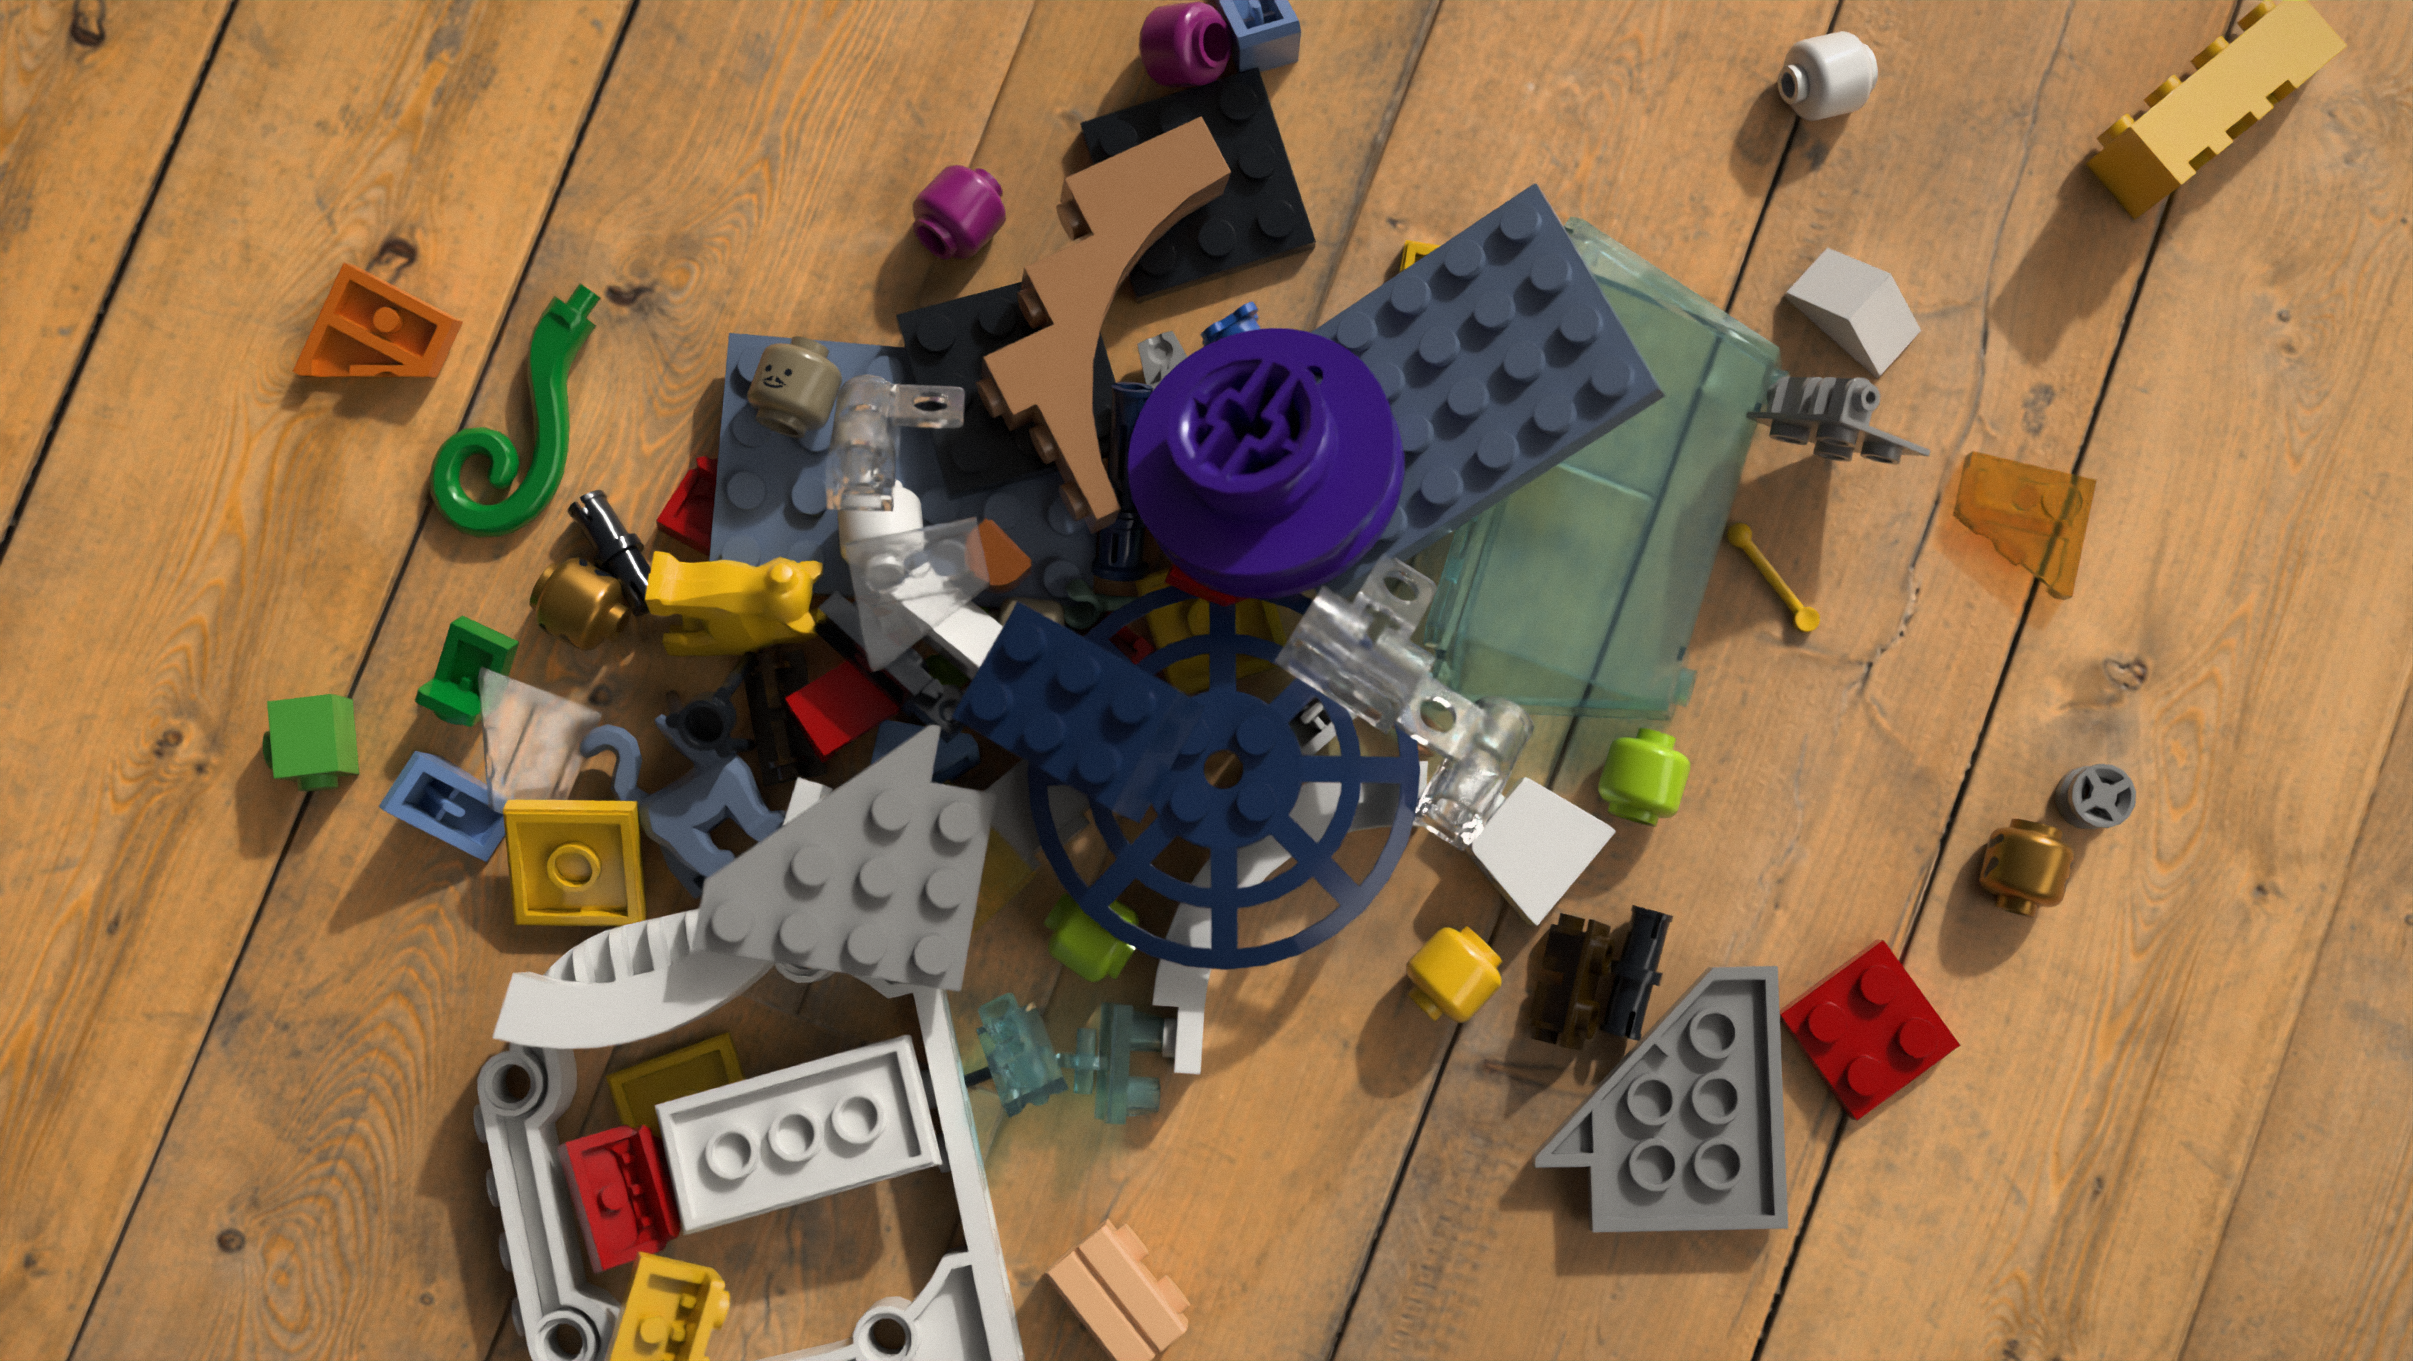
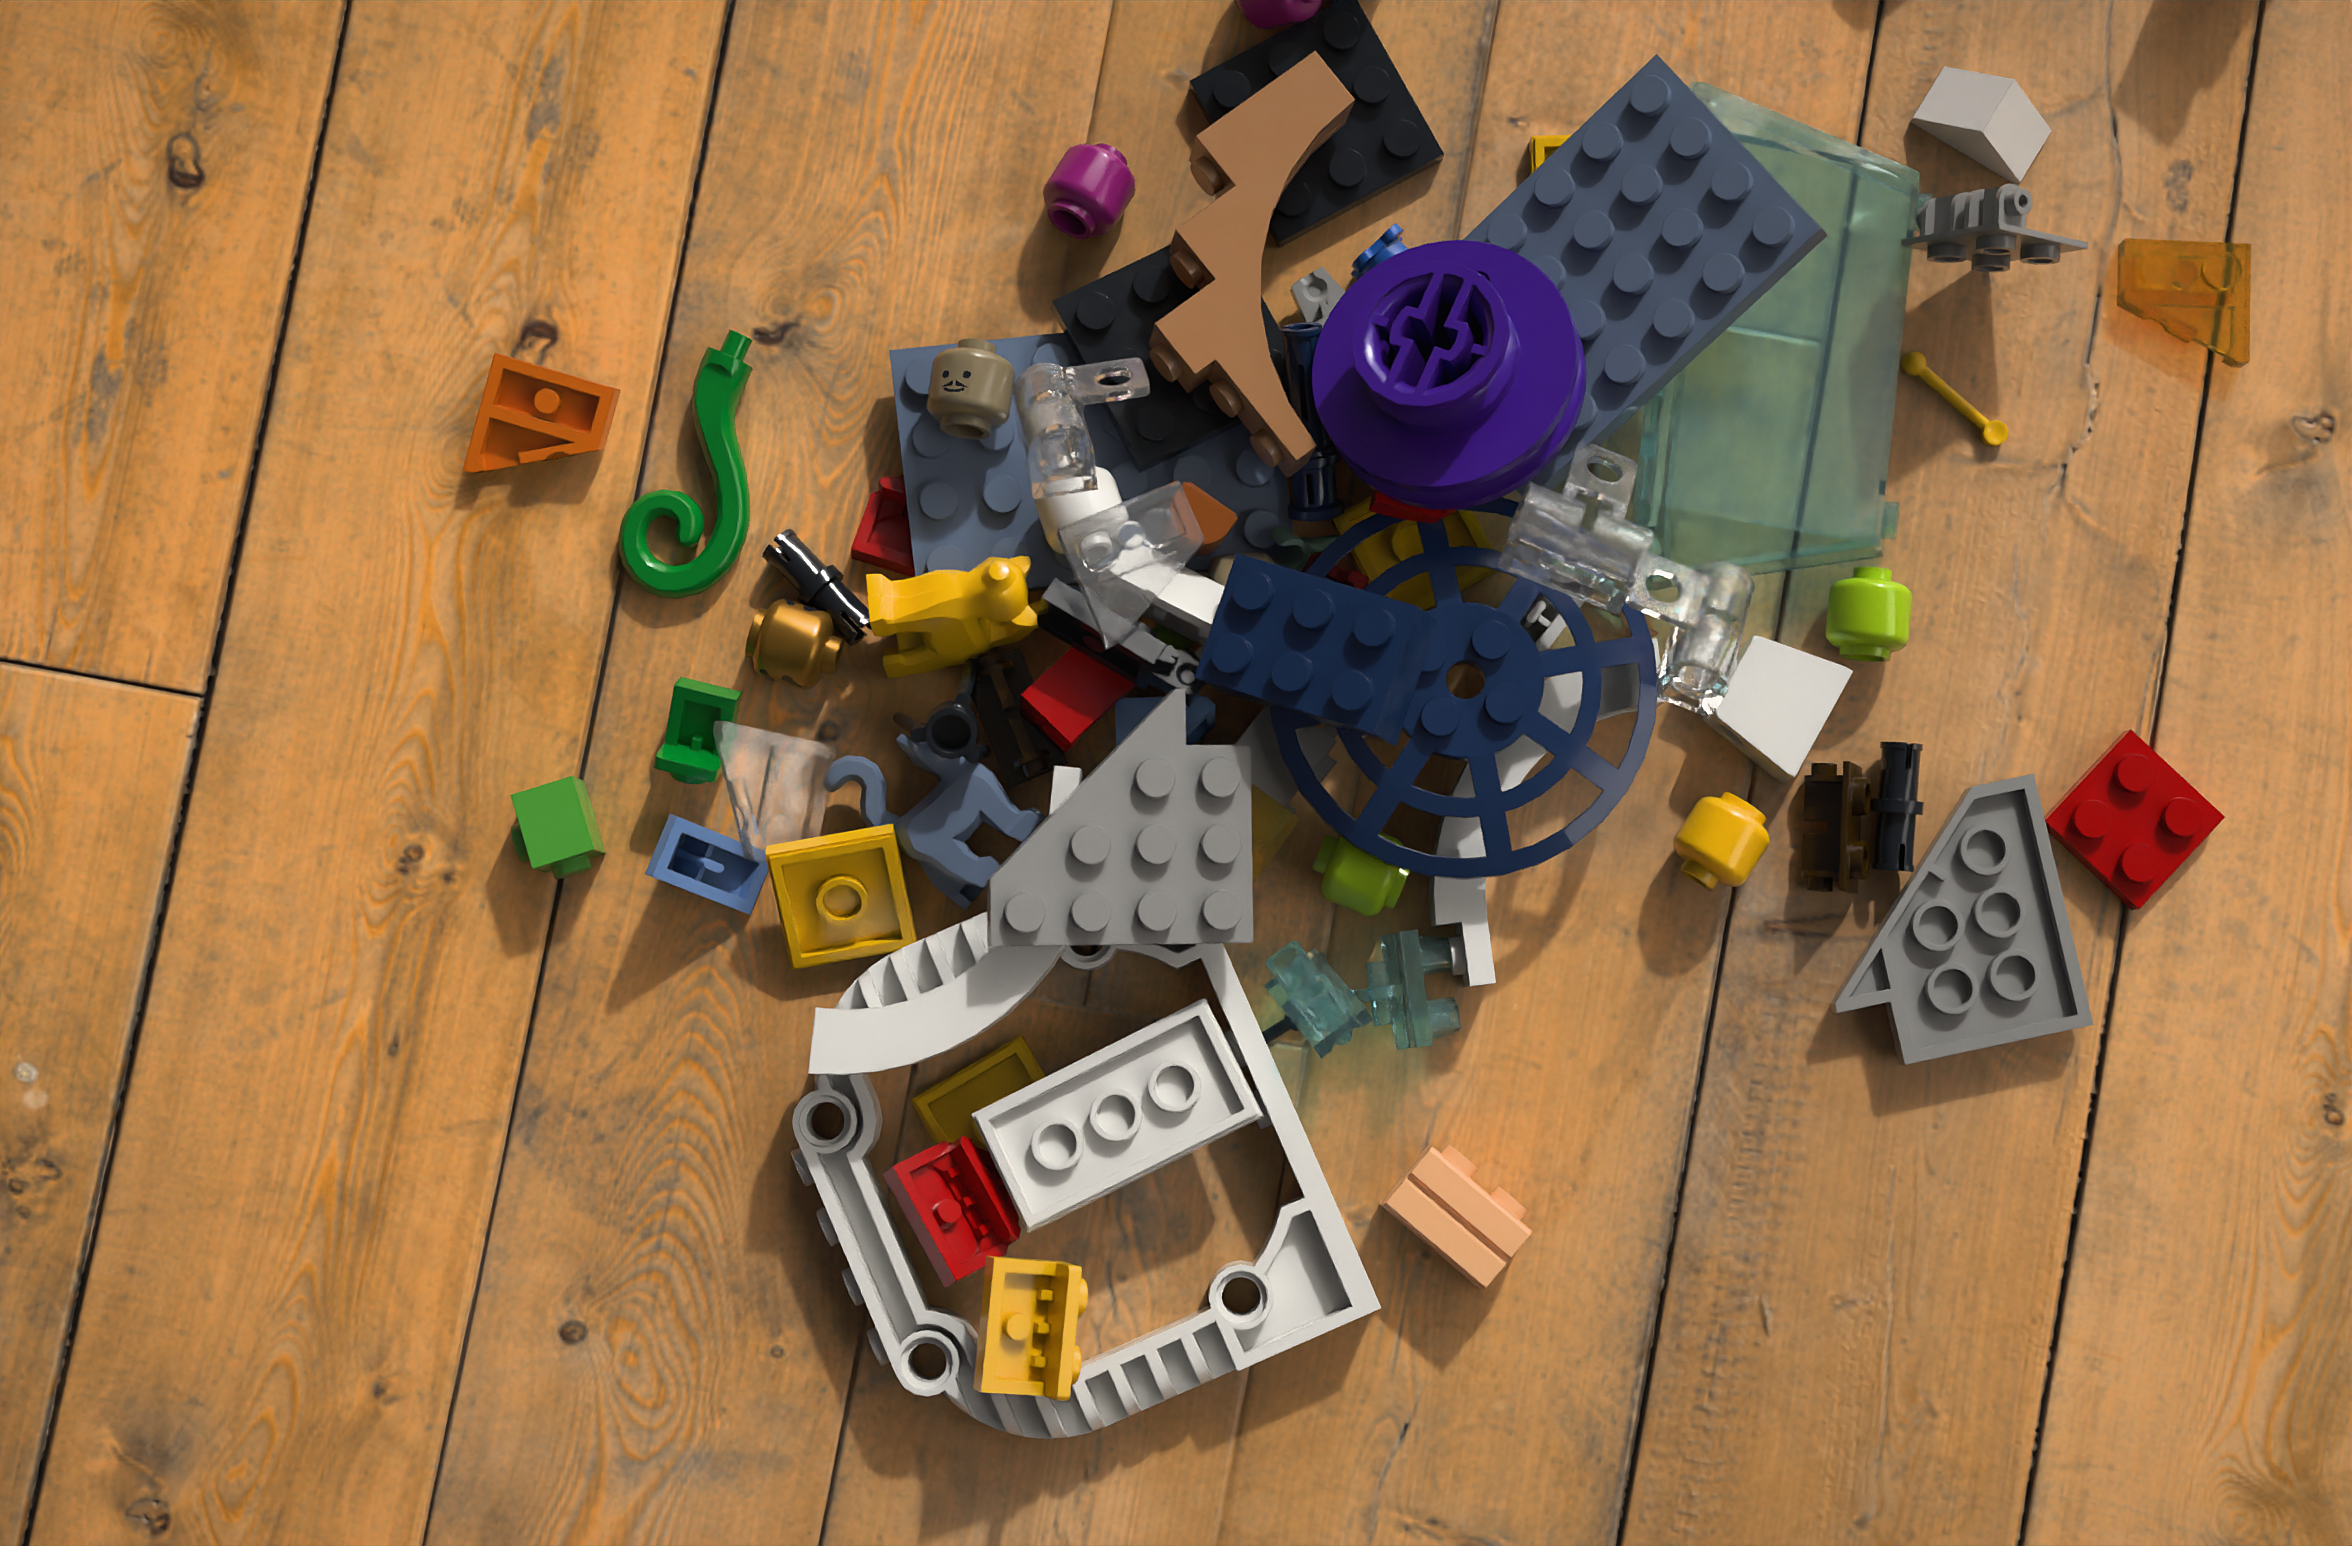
camera: 10 degrees left, 0 degrees up
(2026, 867) = (2255, 632): pearl gold head -> none
(2109, 792) = (2323, 545): light grey wheel -> none

